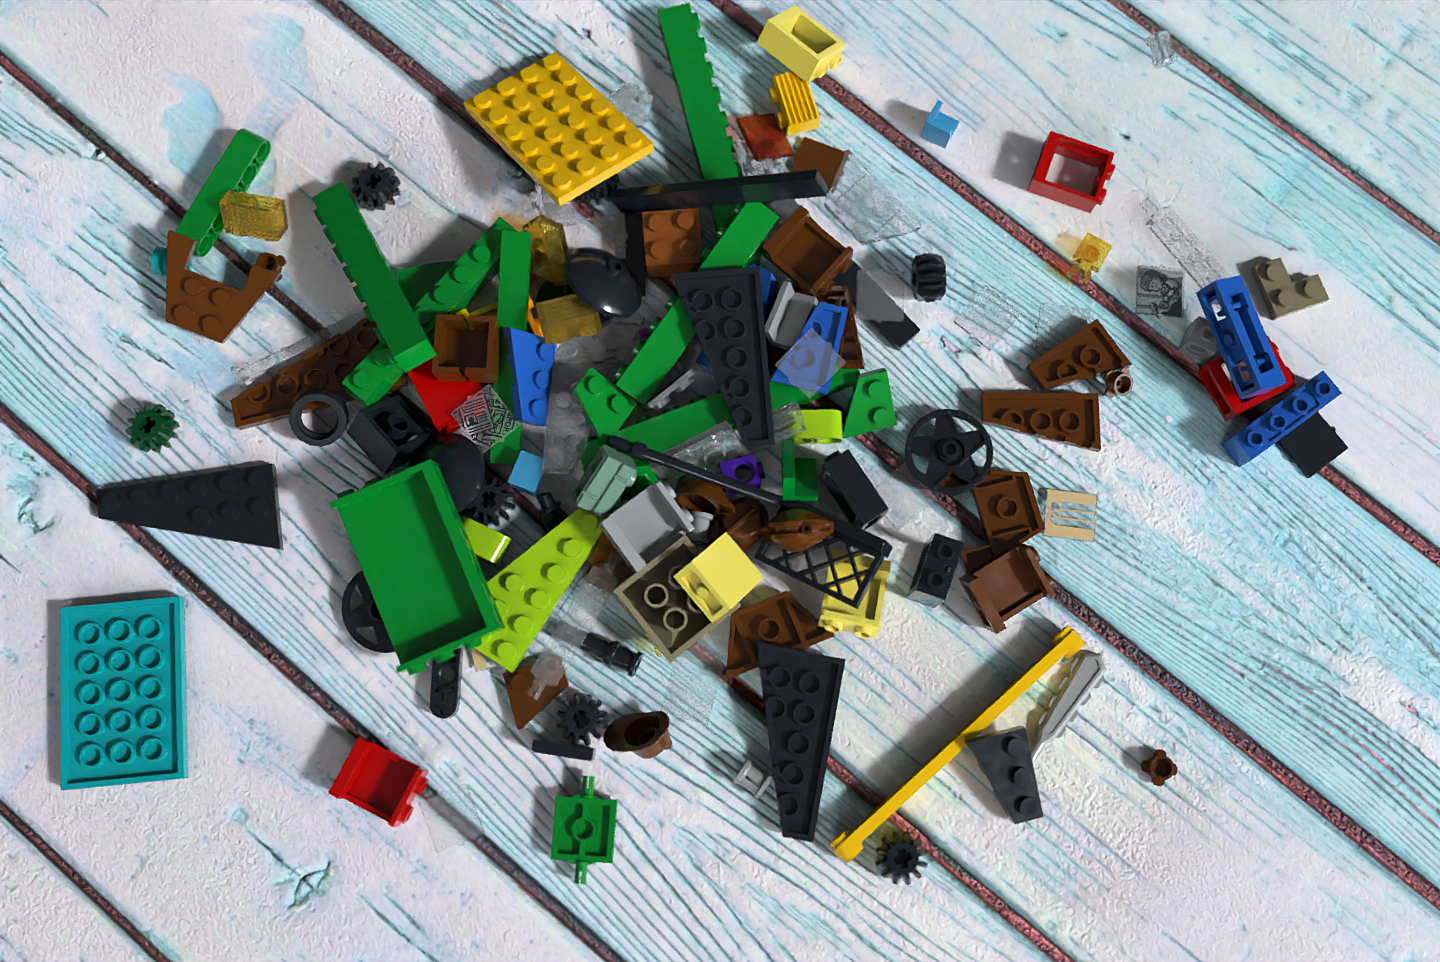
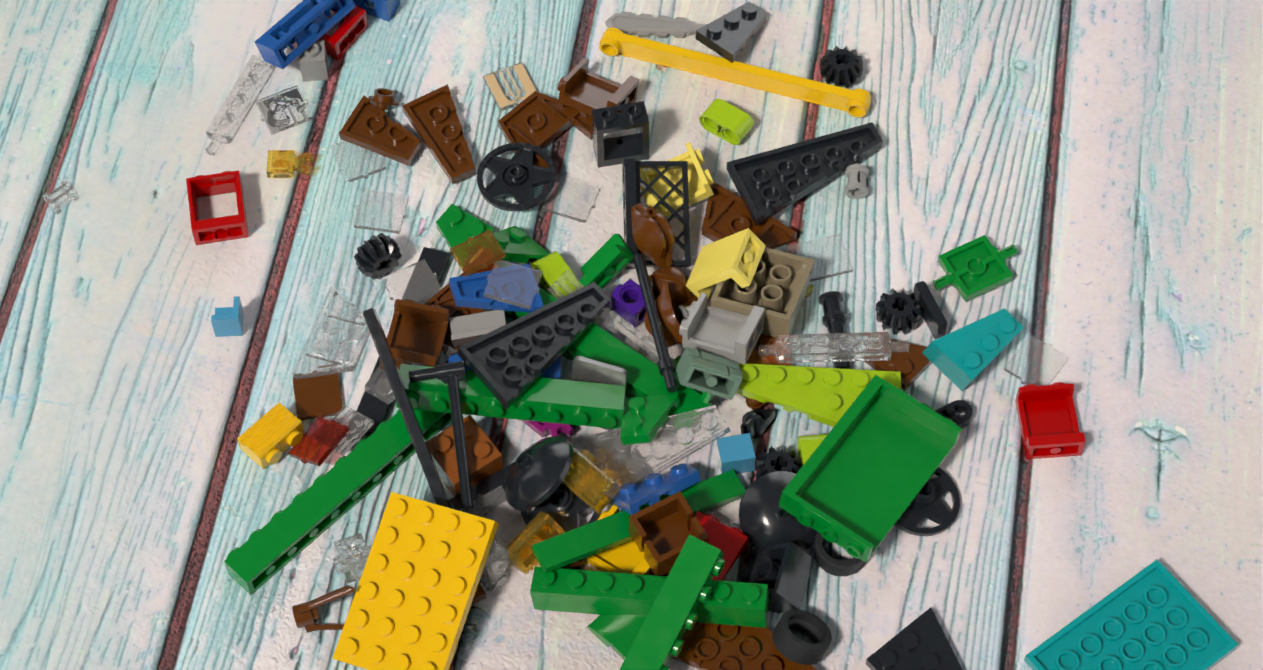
camera: 120 degrees left, 20 degrees down
(485, 418) = (715, 504): clear piece -> none
(492, 763) = (973, 347): none -> teal wedge
(605, 53) = (307, 612): none -> reddish brown plant
(639, 733) = (879, 266): reddish brown piece -> none
(731, 246) = (452, 374): none -> black bar
(801, 44) = (203, 475): light yellow window -> none
(852, 490) = (594, 217): black window -> none
(864, 351) = (477, 252): none -> clear orange piece
(900, 695) = (726, 121): none -> lime beam
(916, 374) = (459, 225): none -> green wing
(1284, 296) = (236, 33): dark tan plate -> none

